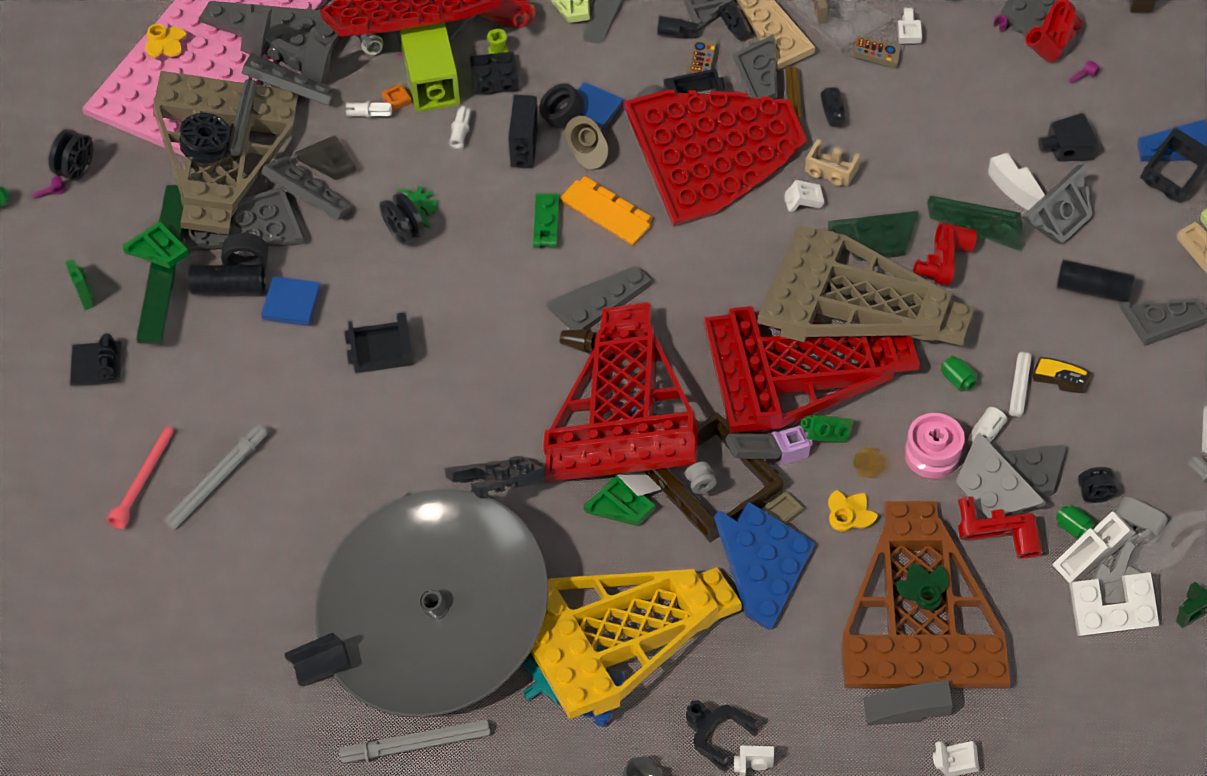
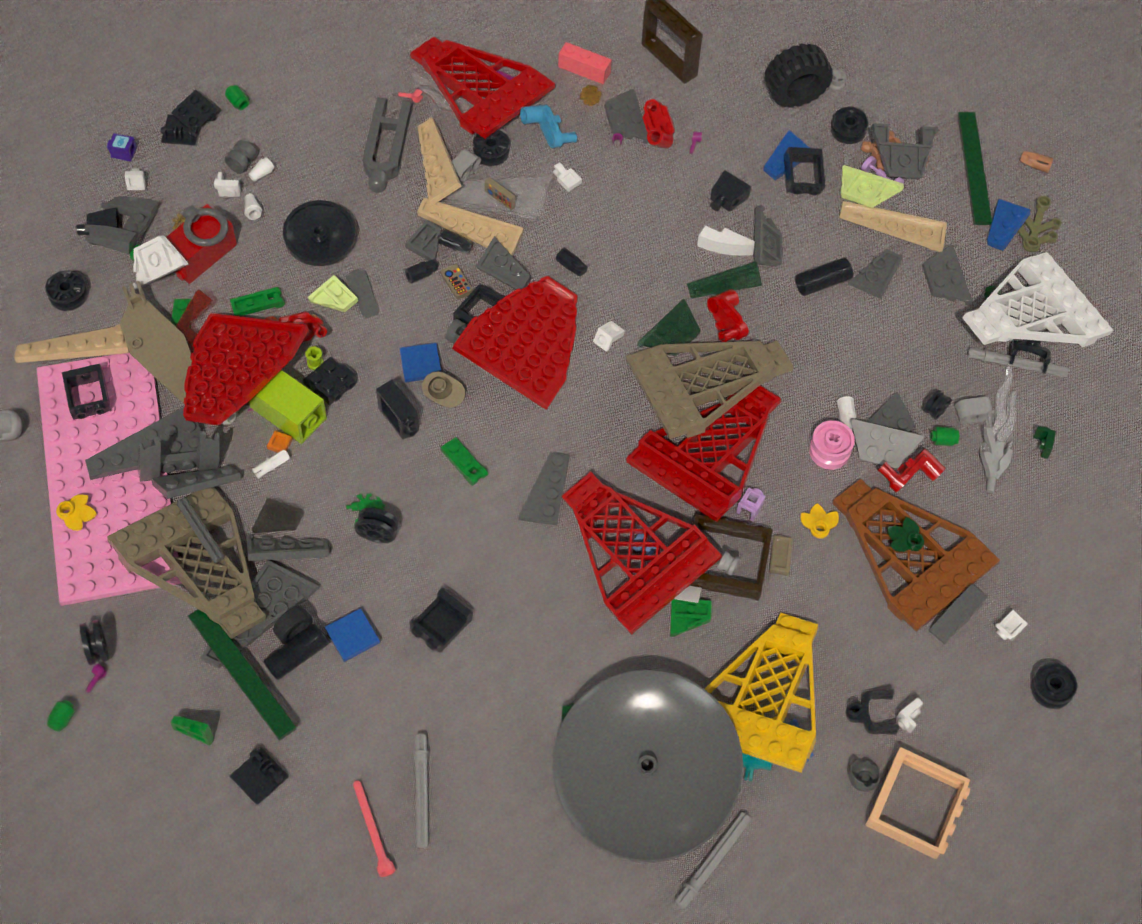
camera: 45 degrees left, 5 degrees up
(157, 246) = (231, 663): green wing -> none
(204, 137) = (202, 560): black wheel -> none
(318, 659) = (611, 857): black panel -> none
(460, 128) = (345, 434): white axle -> none
(496, 474) = (607, 646): black wing -> none
(553, 98) = (416, 373): black tyre -> none
(578, 339) = (563, 527): dark brown cone -> none
(607, 211) = (499, 429): light orange windscreen -> none
(753, 446) = (738, 520): dark grey tile -> none
(763, 560) = (805, 588): blue wing -> none
(793, 90) = (533, 265): pearl gold axle -> none
(827, 428) = (764, 478): green hinge -> none
(832, 166) = (607, 303): tan window -> none
(868, 462) = (802, 478): clear yellow gear -> none
(876, 51) = (562, 206): dark tan tile -> none
(959, 374) = (802, 389): green brick -> none
(1020, 384) = (838, 371): white axle -> none
(1065, 374) = (856, 348): slope -> none
(1093, 547) = (968, 445): white slope -> none
(1136, 613) = (1006, 484): white plate -> none

